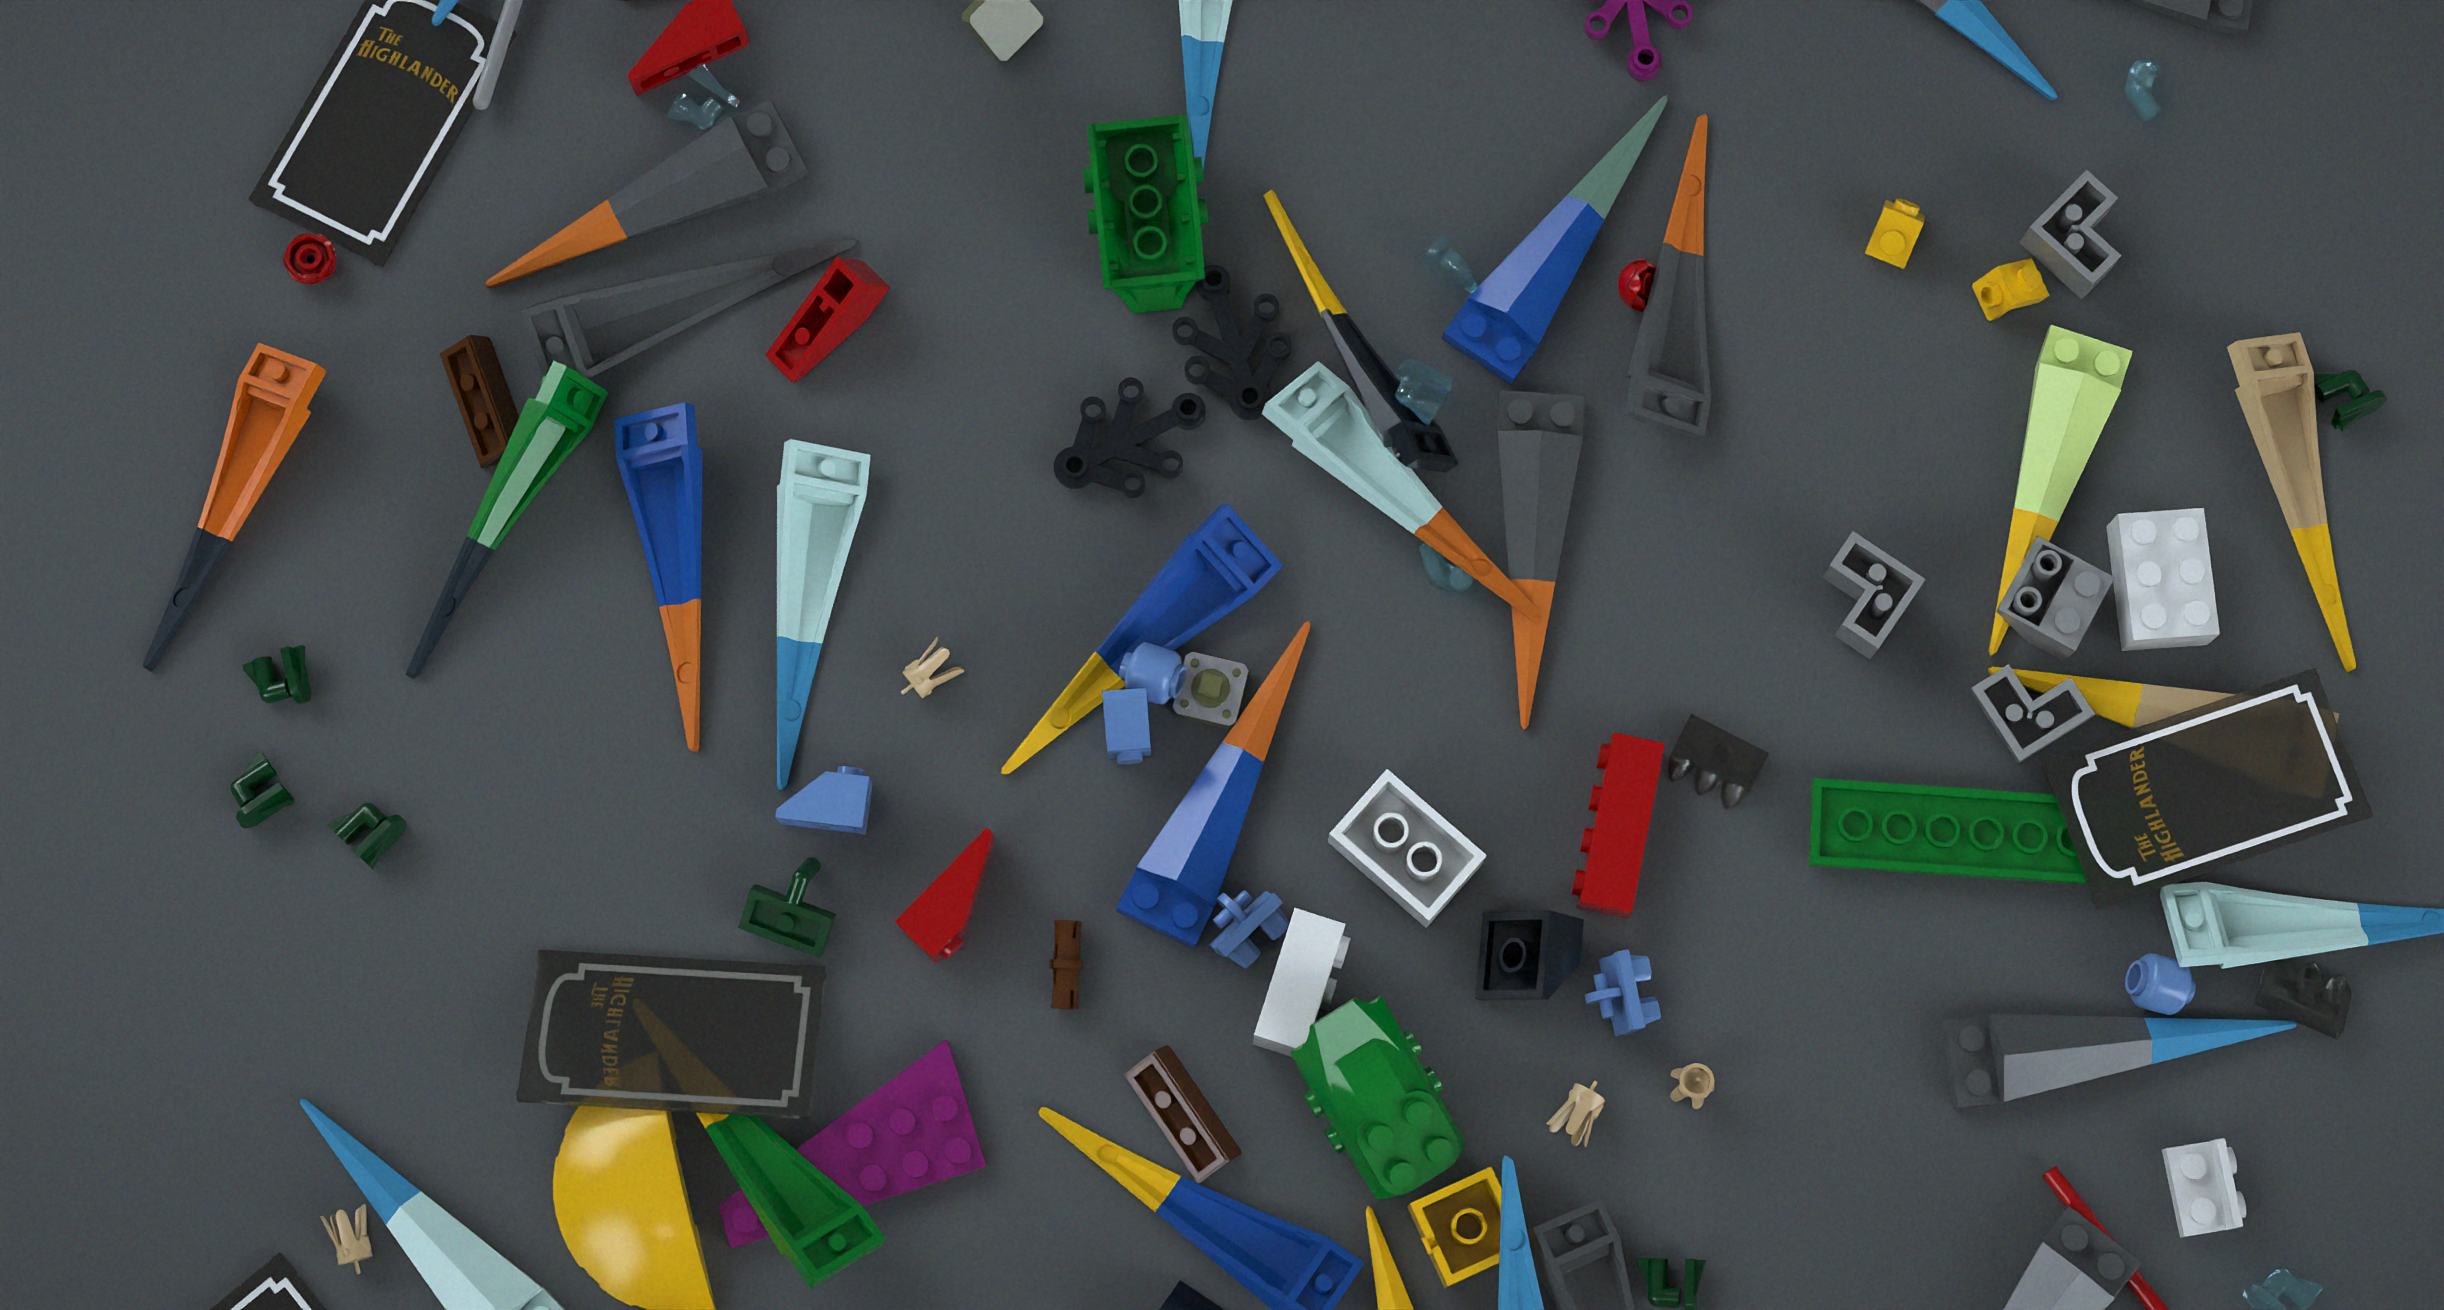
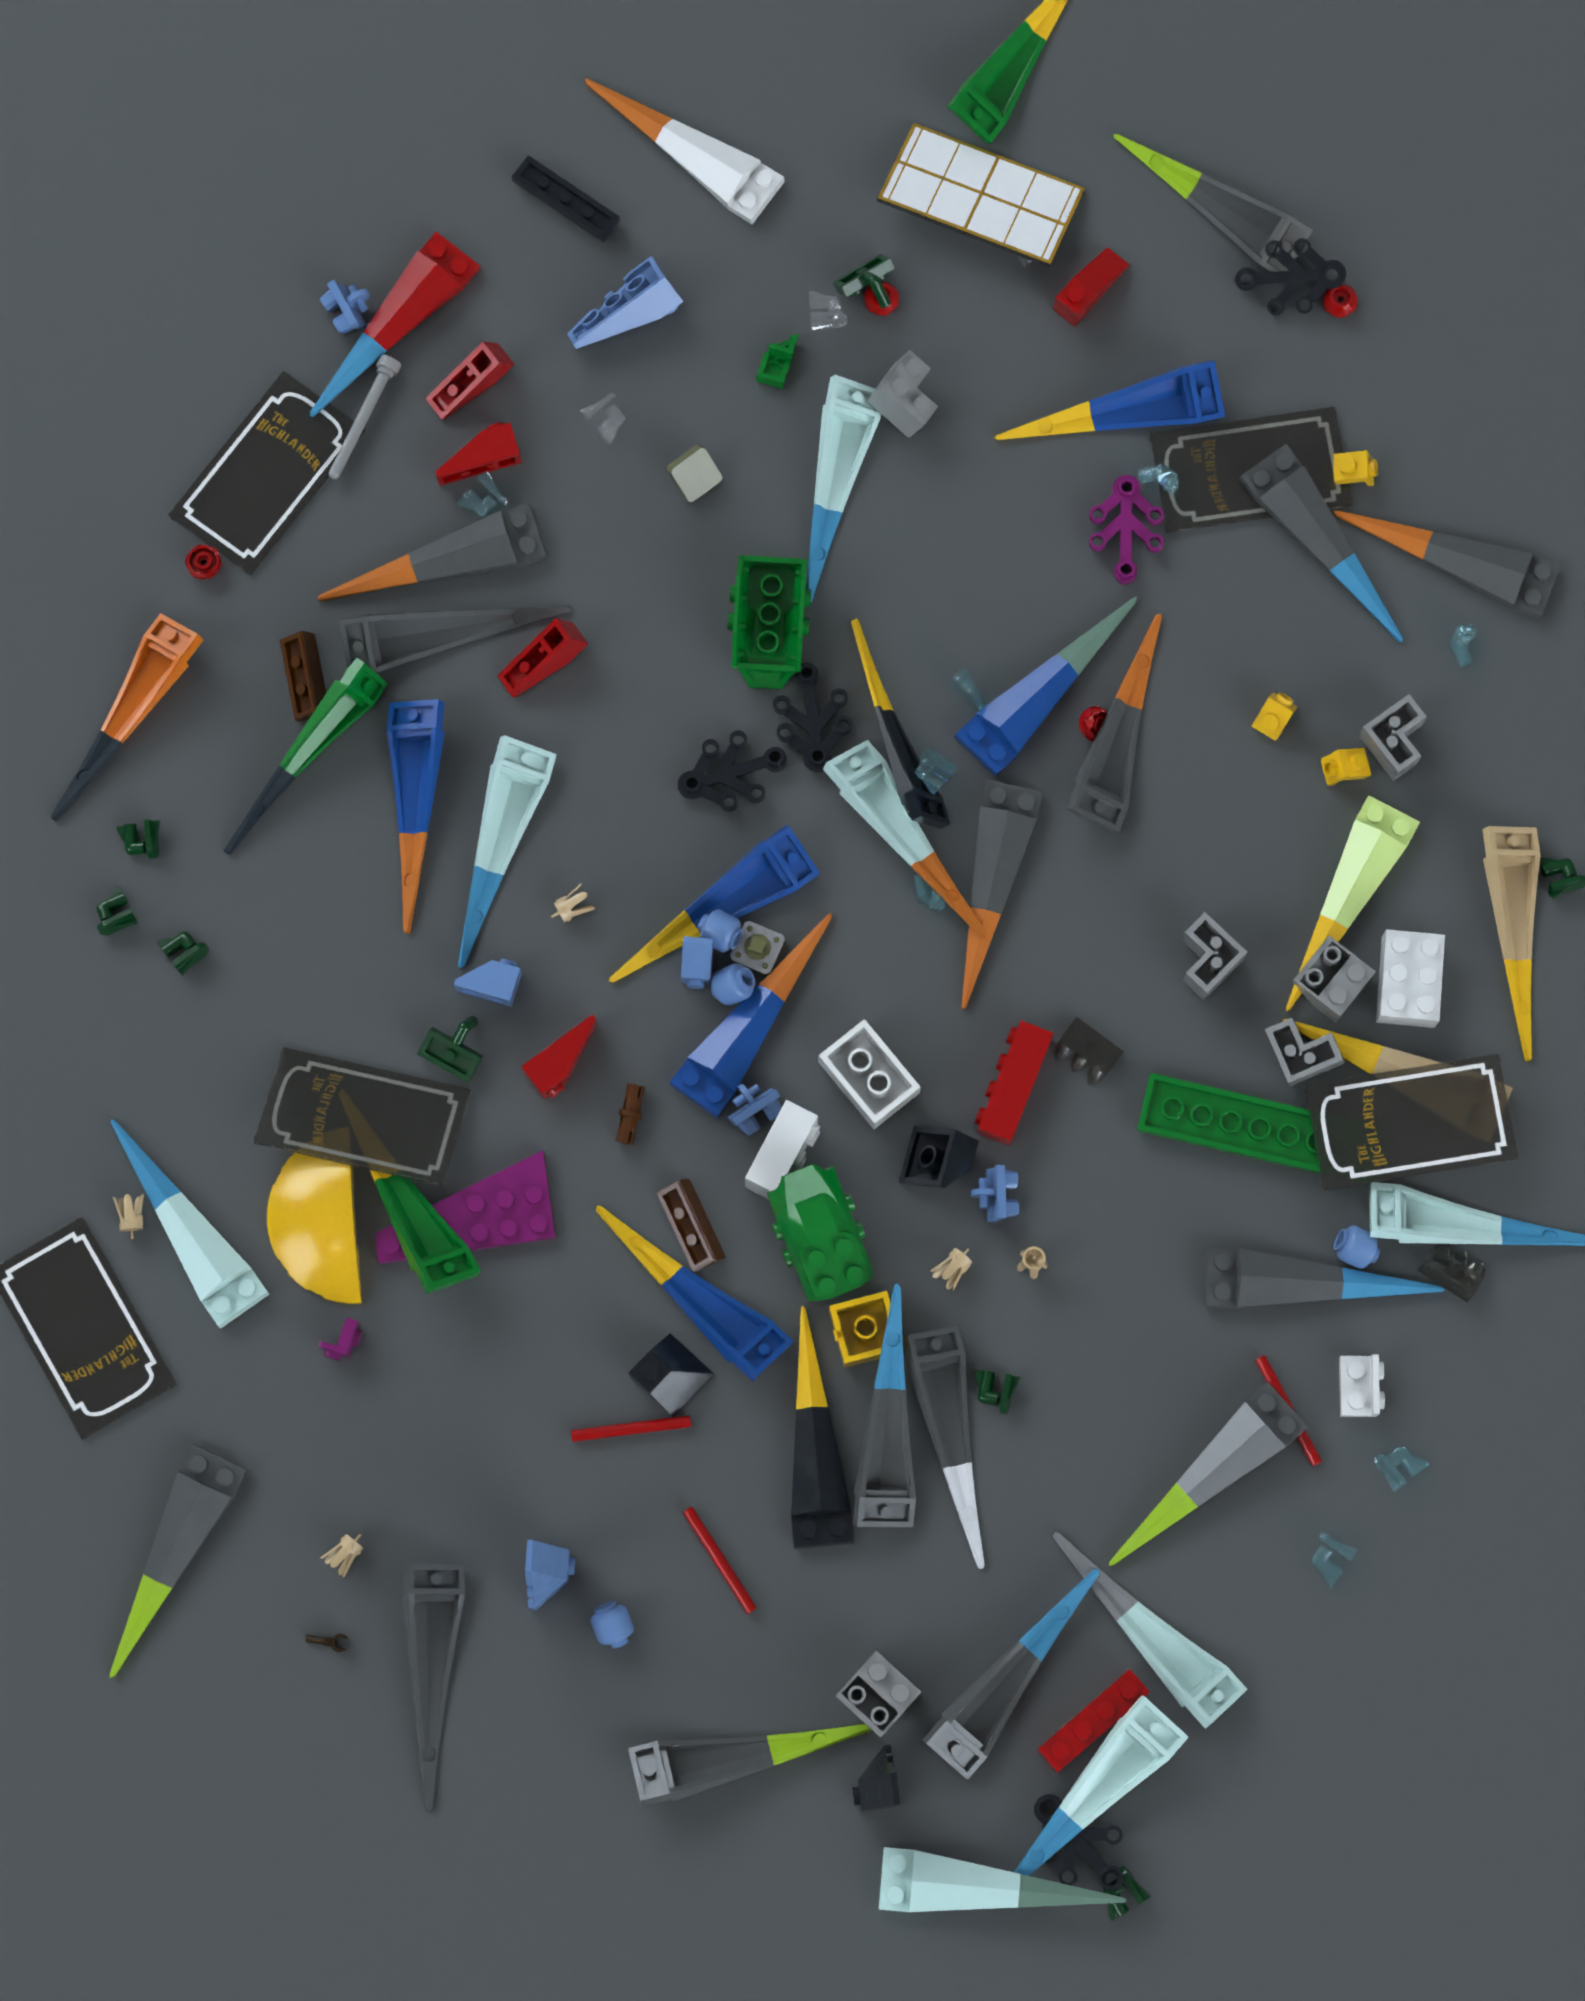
camera: 10 degrees right, 0 degrees up
(1184, 748) = (732, 984): none -> medium blue head

